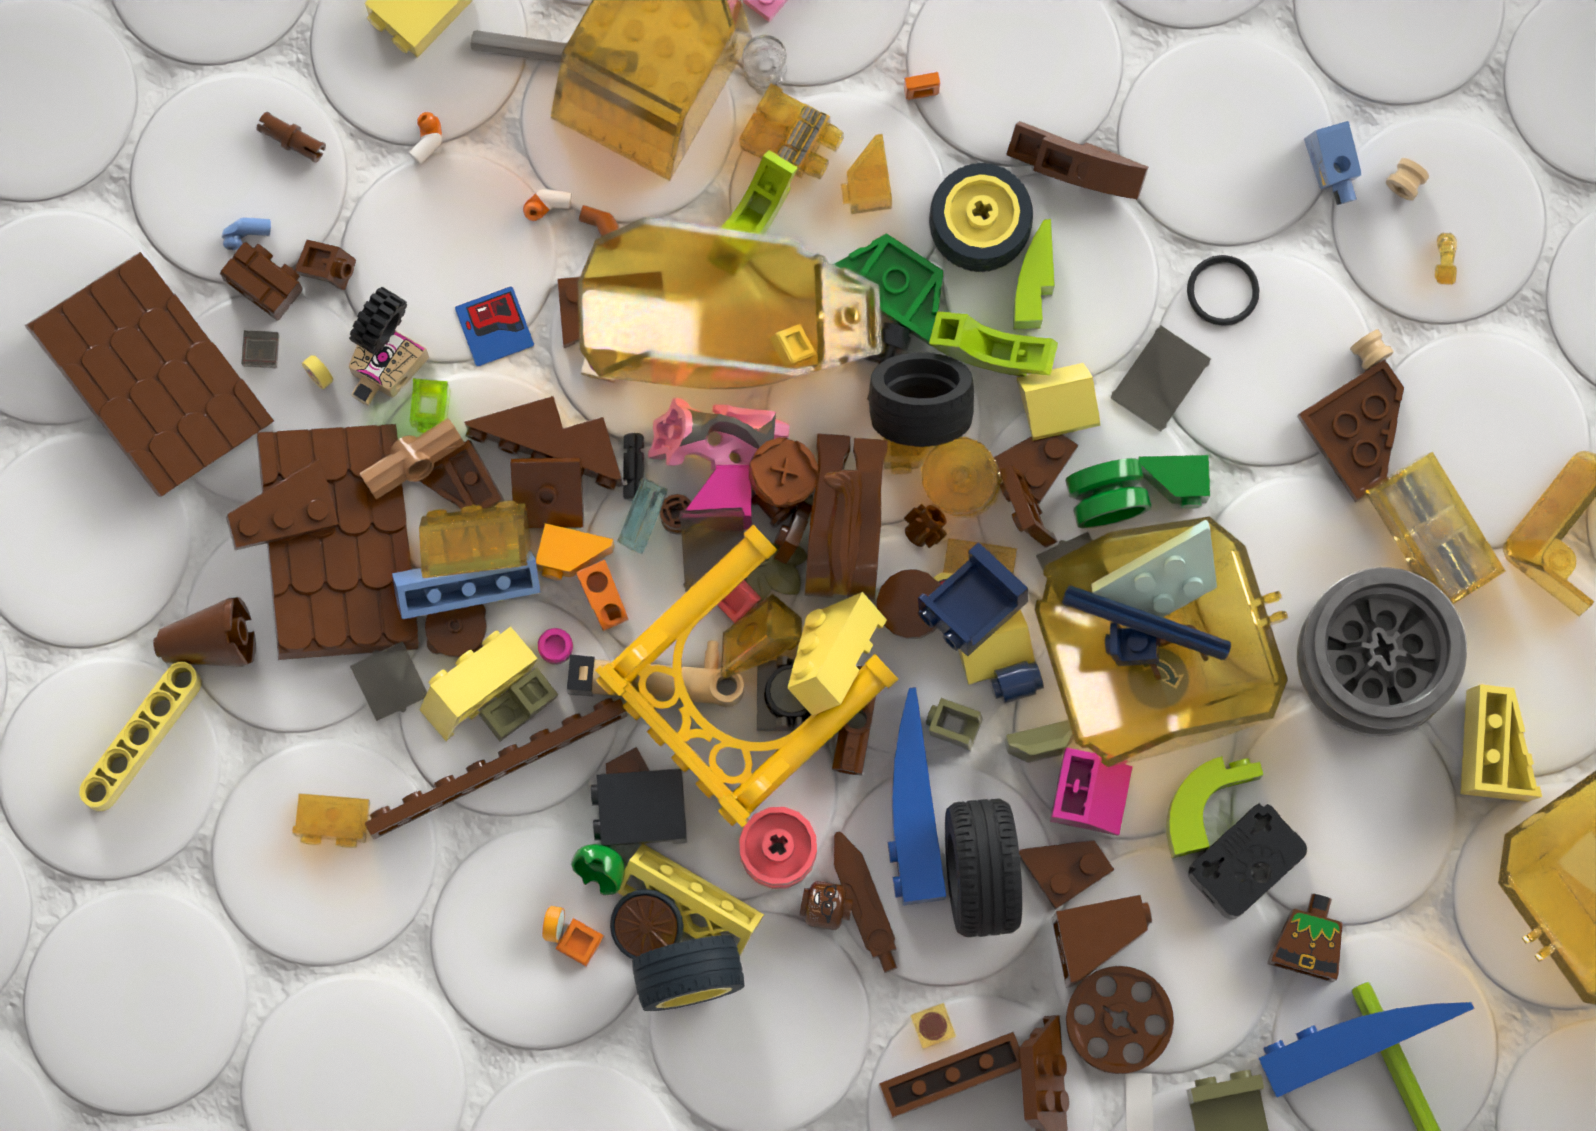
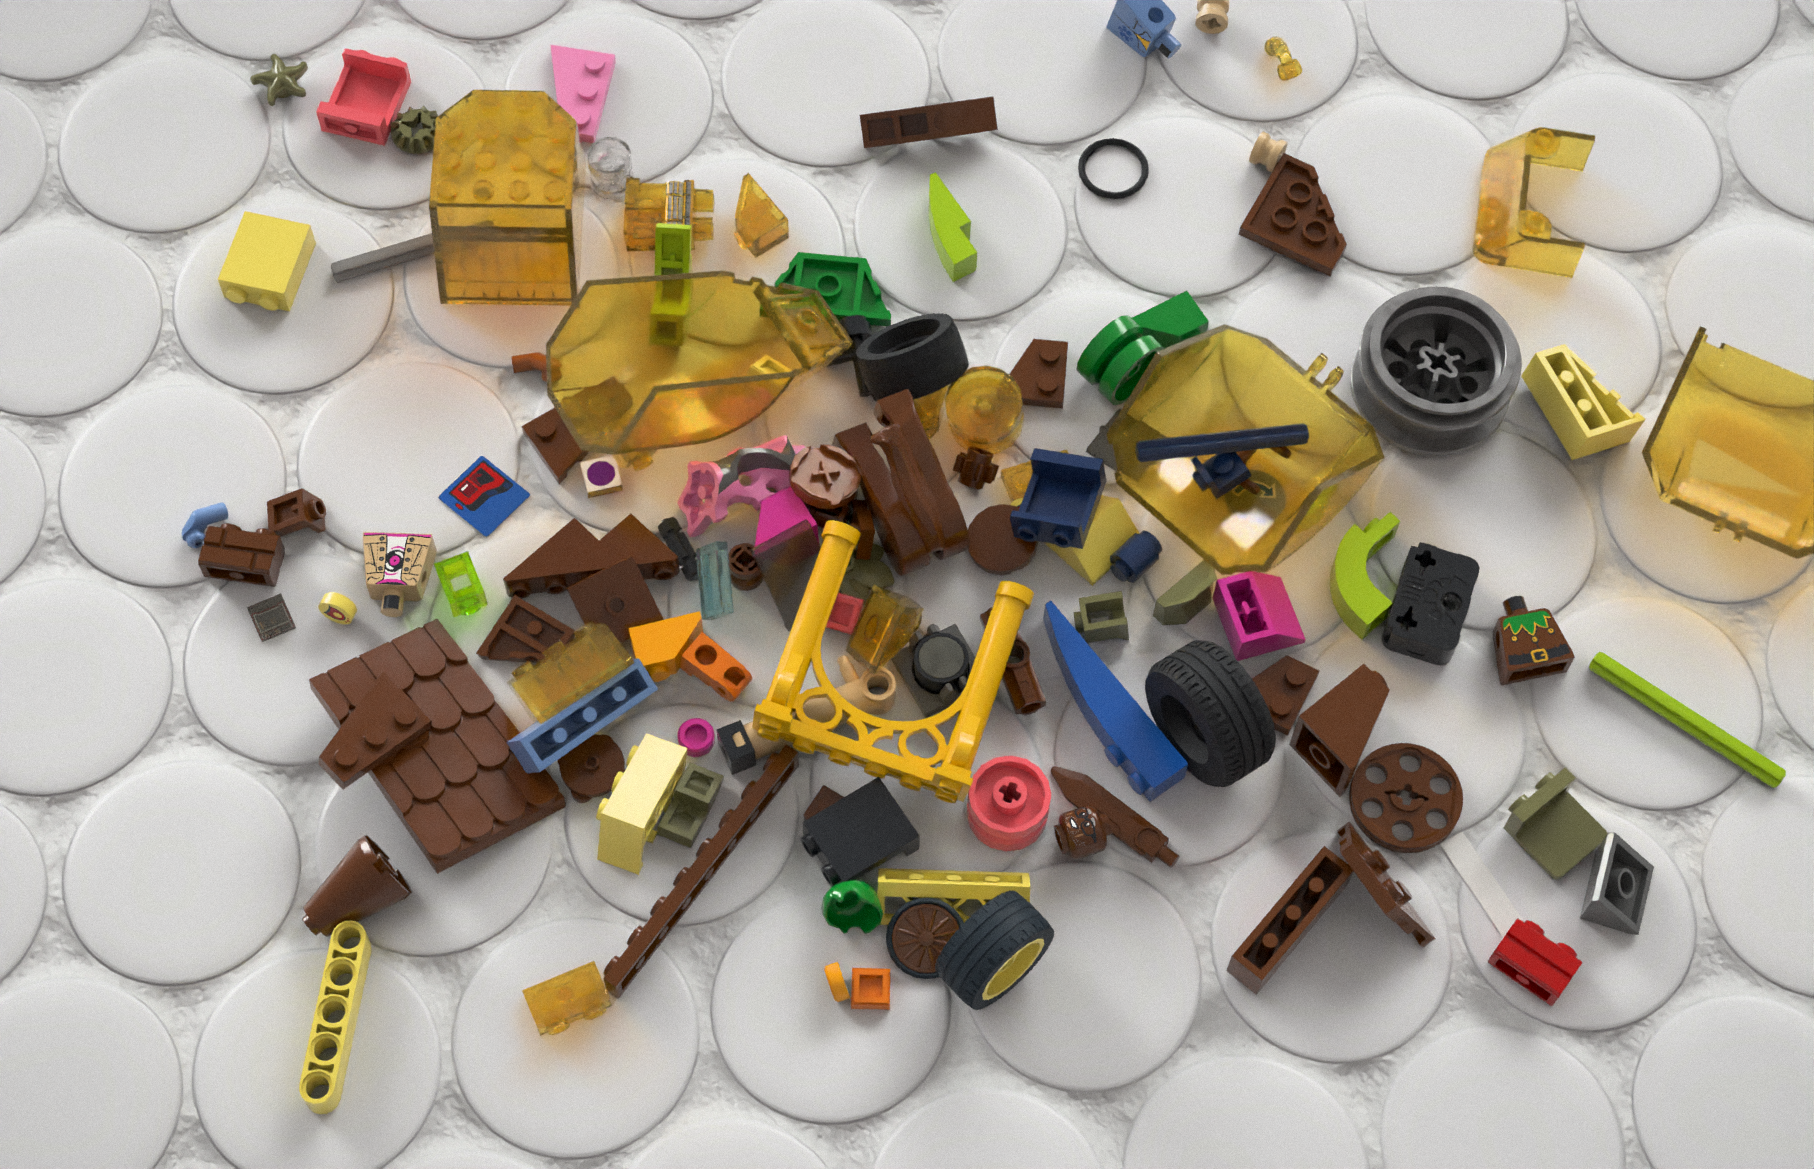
camera: 30 degrees left, 15 degrees down
(149, 374) = (173, 685): reddish brown piece -> none
(291, 137) = (205, 424): reddish brown pin -> none
(378, 320) = (375, 522): black tyre -> none
(389, 680) = (555, 844): clear smoke piece -> none
(412, 458) = (470, 633): medium nougat piece -> none
(430, 137) = (337, 366): arm -> none
(544, 201) = (473, 370): arm -> none
(830, 650) = (959, 601): light yellow wedge -> none
(922, 86) = (759, 126): orange tile -> none
(933, 1026) = (1243, 891): clear yellow tile -> none
(958, 223) = (873, 201): wheel -> none
(991, 349) = (958, 297): lime arch -> none
(1026, 507) = (1059, 408): reddish brown wing -> none
(1059, 401) = (1031, 313): light yellow slope -> none
(1160, 378) = (1104, 260): clear smoke piece -> none
(1166, 575) = (1217, 391): light aqua wing -> none
(1345, 1043) = (1620, 703): blue slope -> none
(1435, 528) = (1409, 252): clear brick -> none

